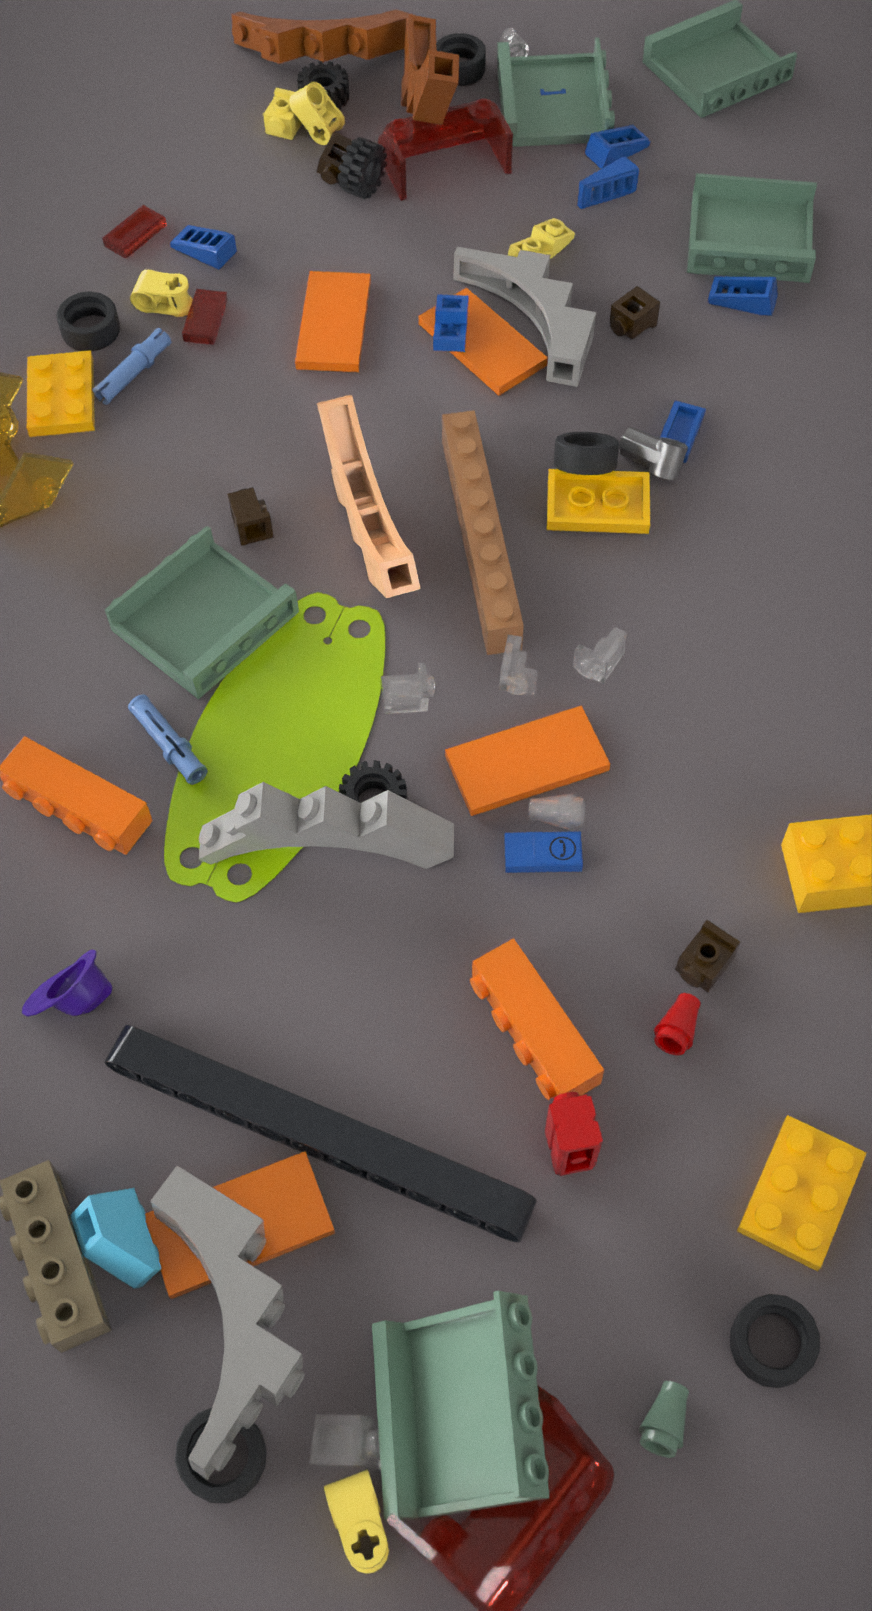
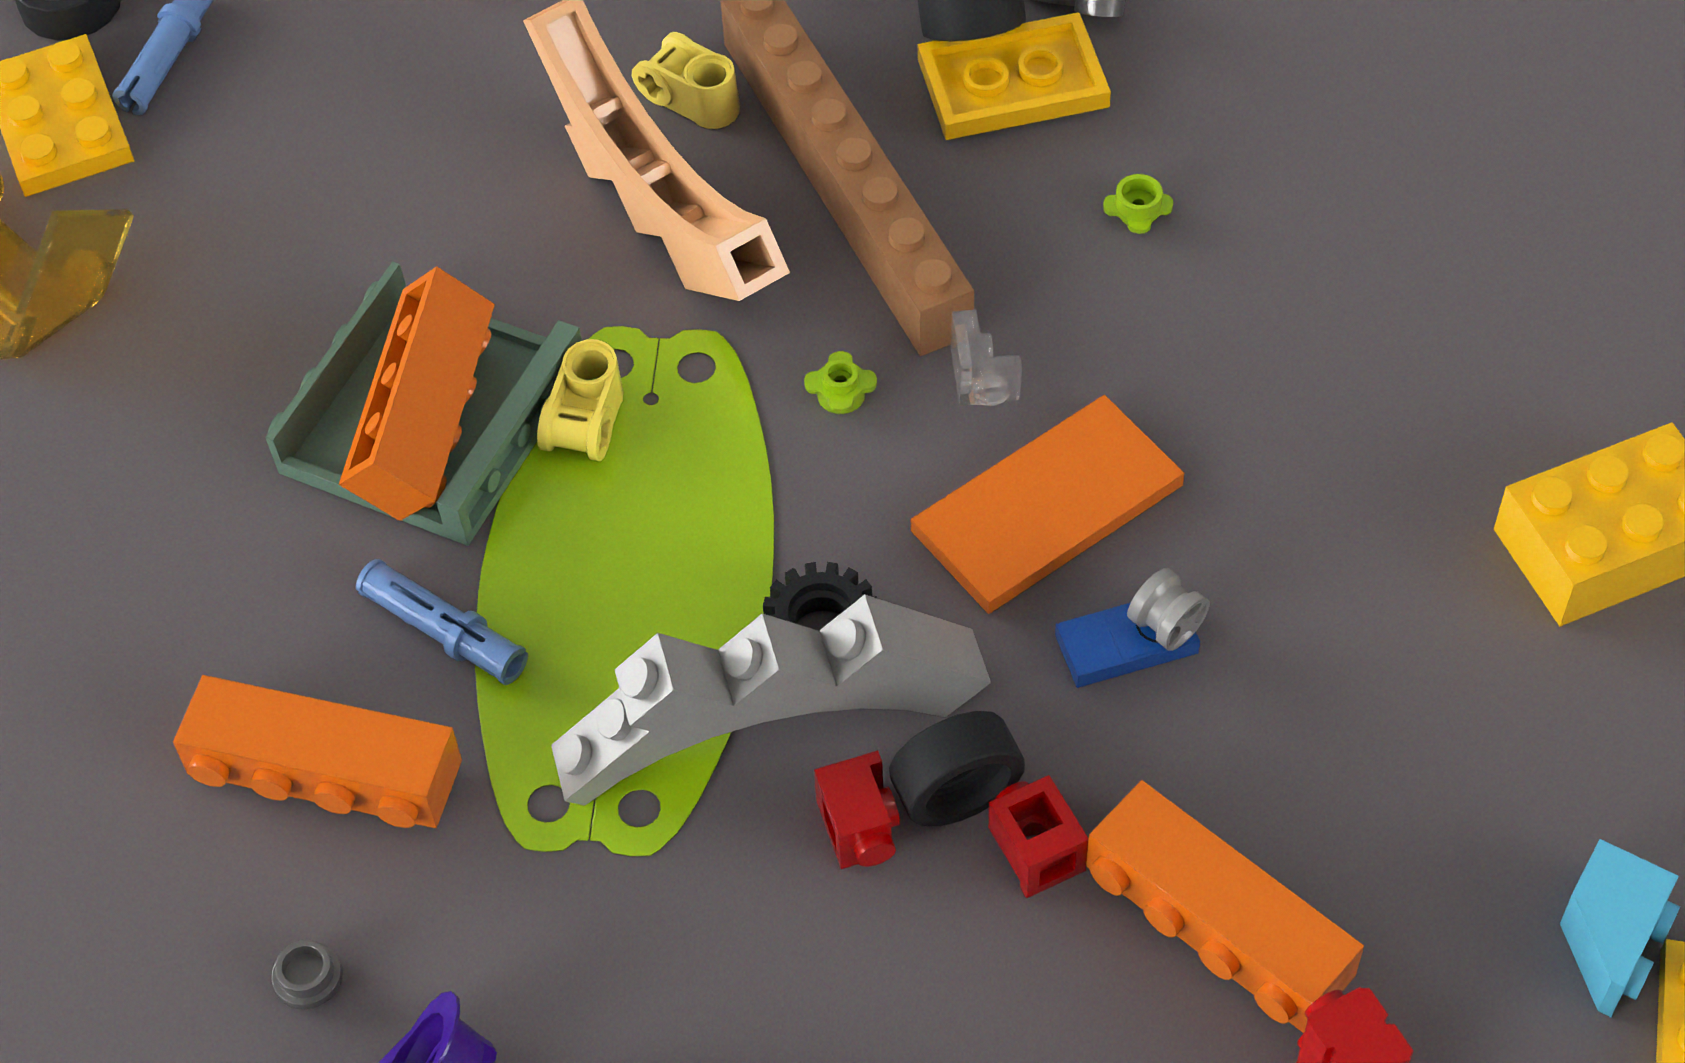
camera: 15 degrees left, 5 degrees down
(29, 917) = (306, 974): none -> flat silver plate
(193, 607) = (418, 395): none -> orange brick
(250, 516) = (454, 232): dark brown brick -> none
(283, 639) = (582, 410): none -> light yellow piece
(354, 909) = (857, 810): none -> red brick
(407, 691) = (816, 444): clear bracket -> none
(412, 460) = (693, 82): none -> light yellow piece
(414, 902) = (956, 768): none -> black tyre
(439, 666) = (840, 396): none -> lime plate
(450, 966) = (1060, 841): none -> red brick
(559, 810) = (1125, 564): clear cone -> none
(567, 842) = (1168, 609): none -> light grey wheel
(604, 658) = (1108, 320): clear bracket -> none
(643, 588) = (1138, 202): none -> lime plate
(677, 1027) = (1445, 850): red cone -> none
(719, 949) = (1450, 728): dark brown brick -> none
(759, 1094) = (1611, 919): none -> medium azure slope

